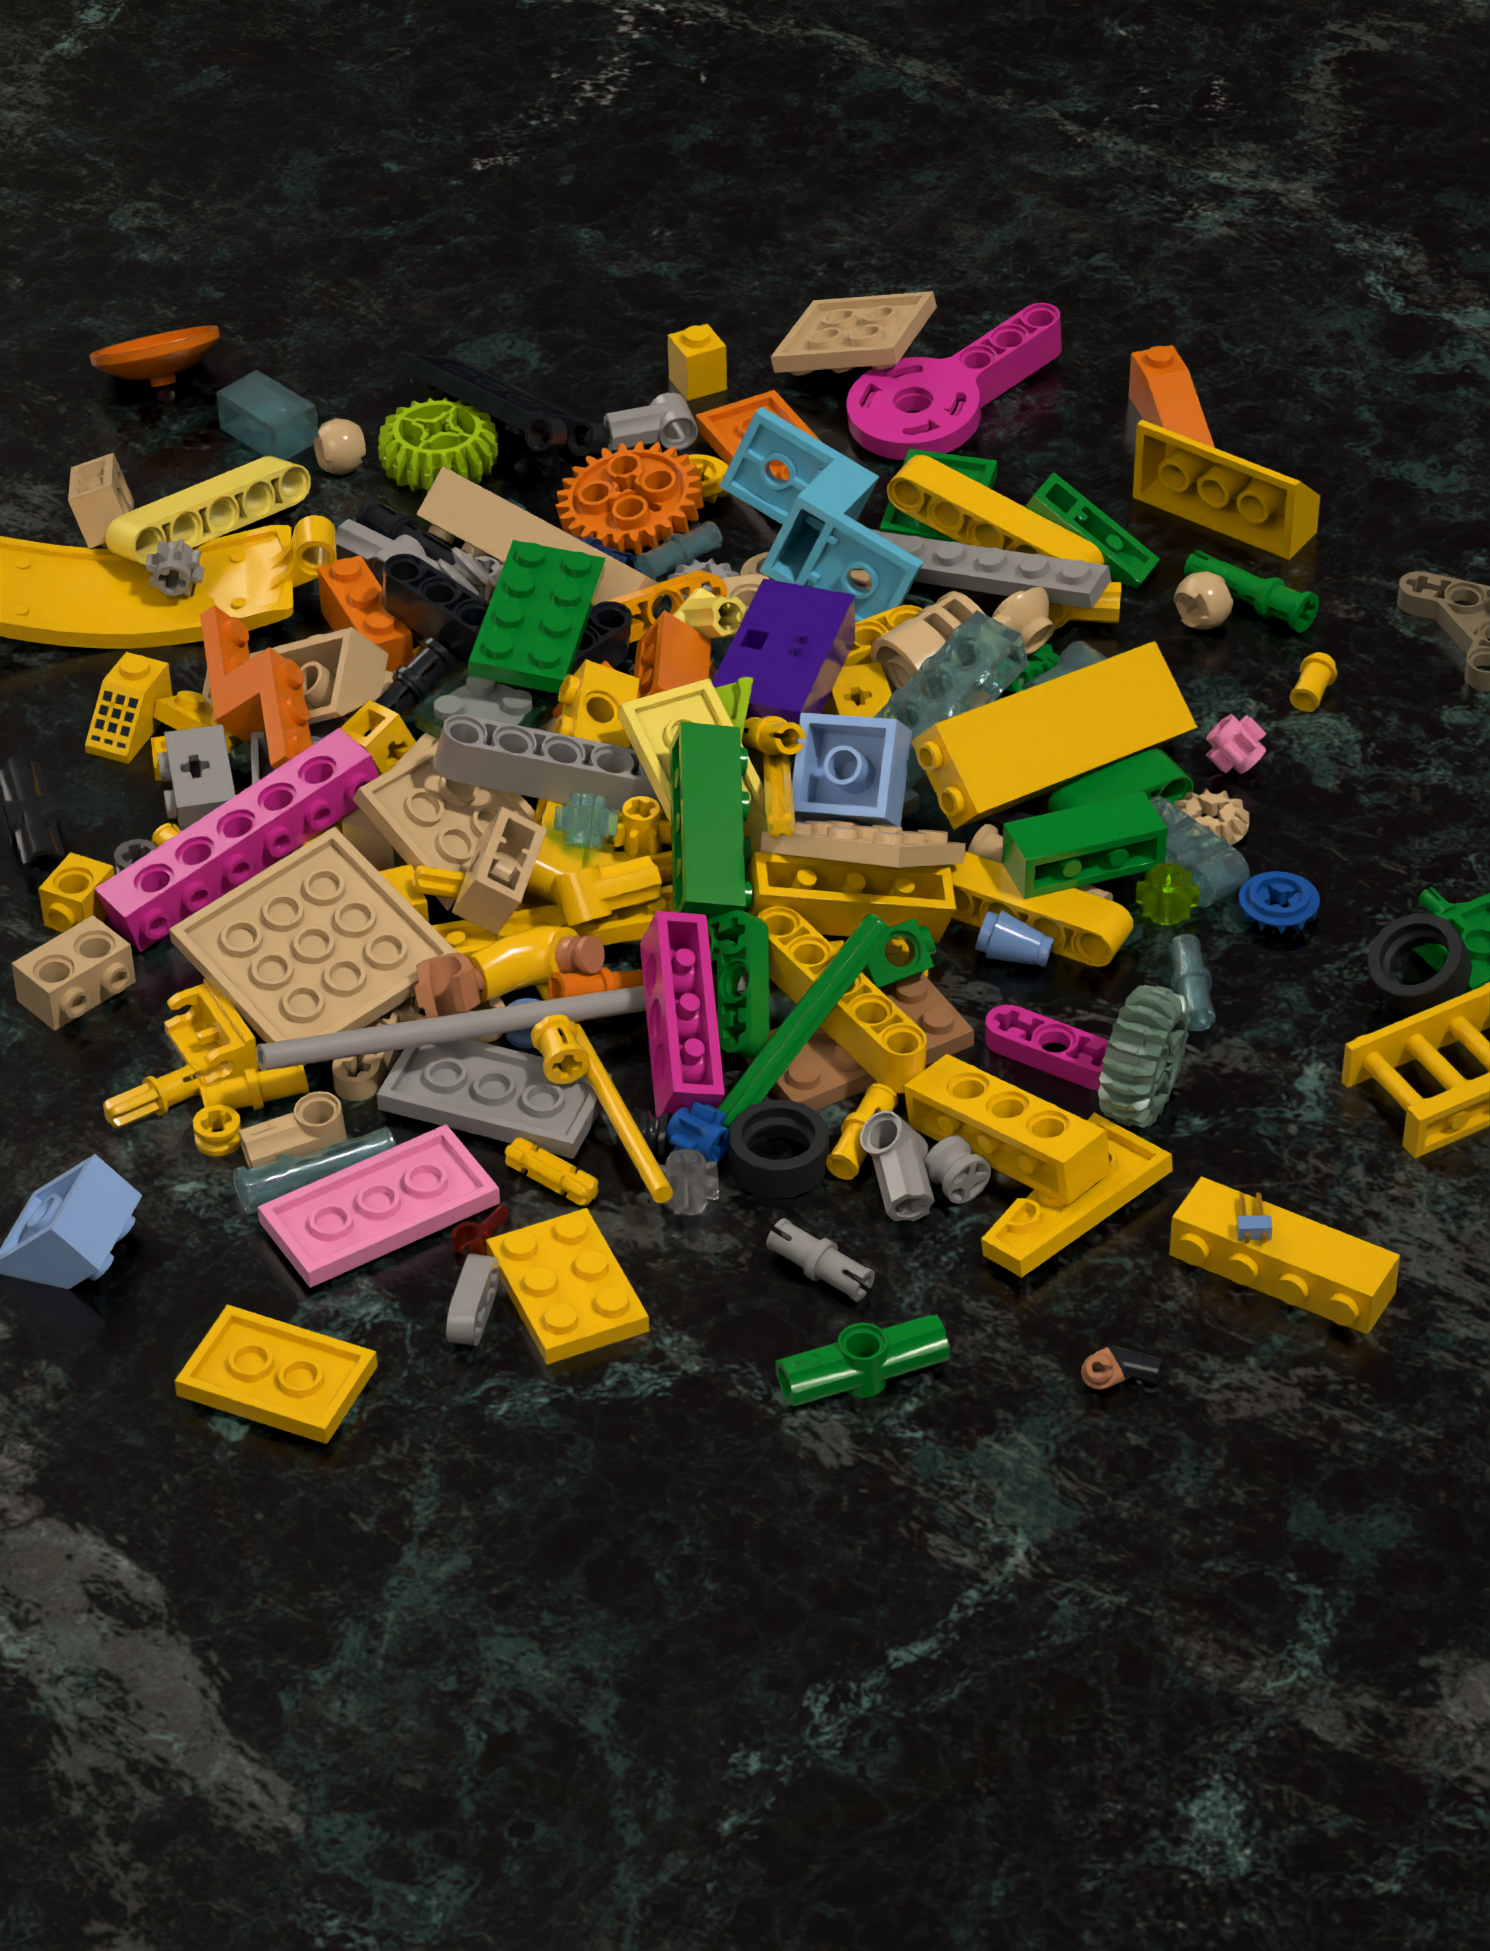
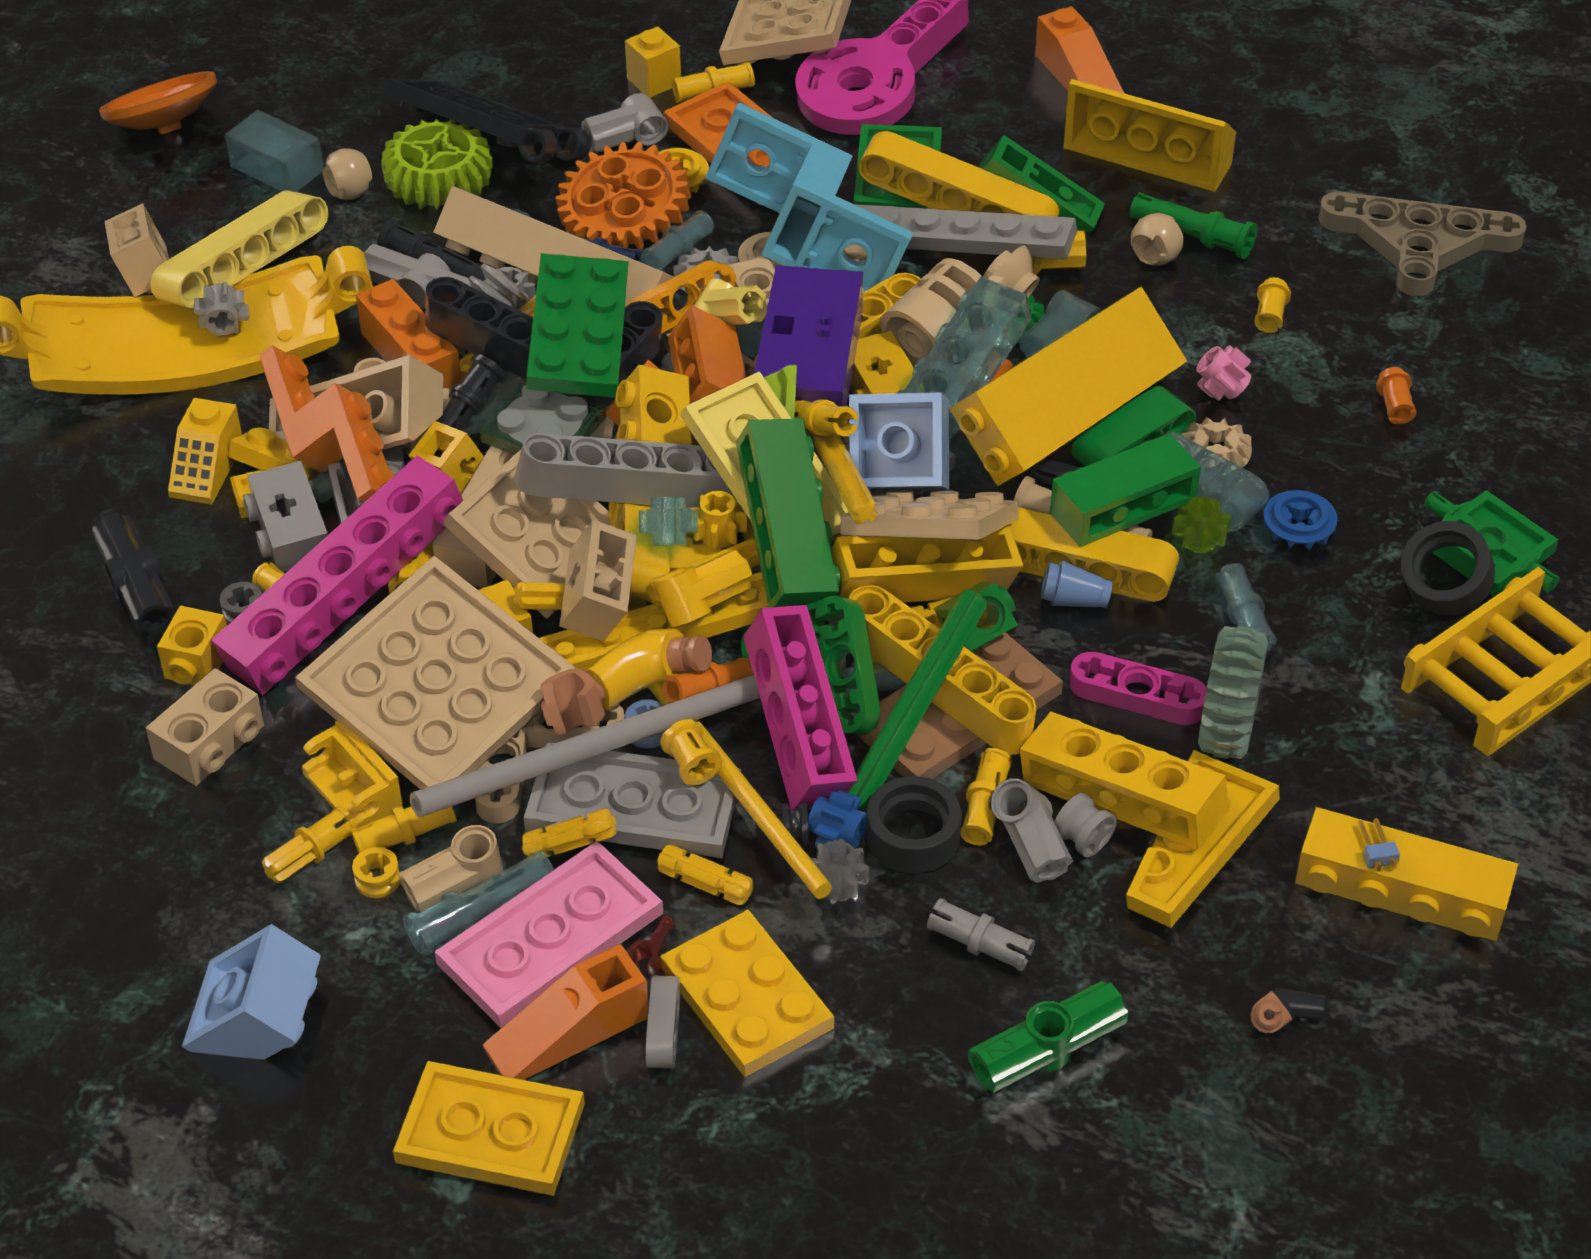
camera: 10 degrees left, 5 degrees up
(383, 1279) = (572, 1015): none -> orange slope
(421, 1113) = (570, 833): none -> yellow axle
(786, 385) = (696, 84): none -> yellow pin
(1424, 779) = (1394, 387): none -> orange pin

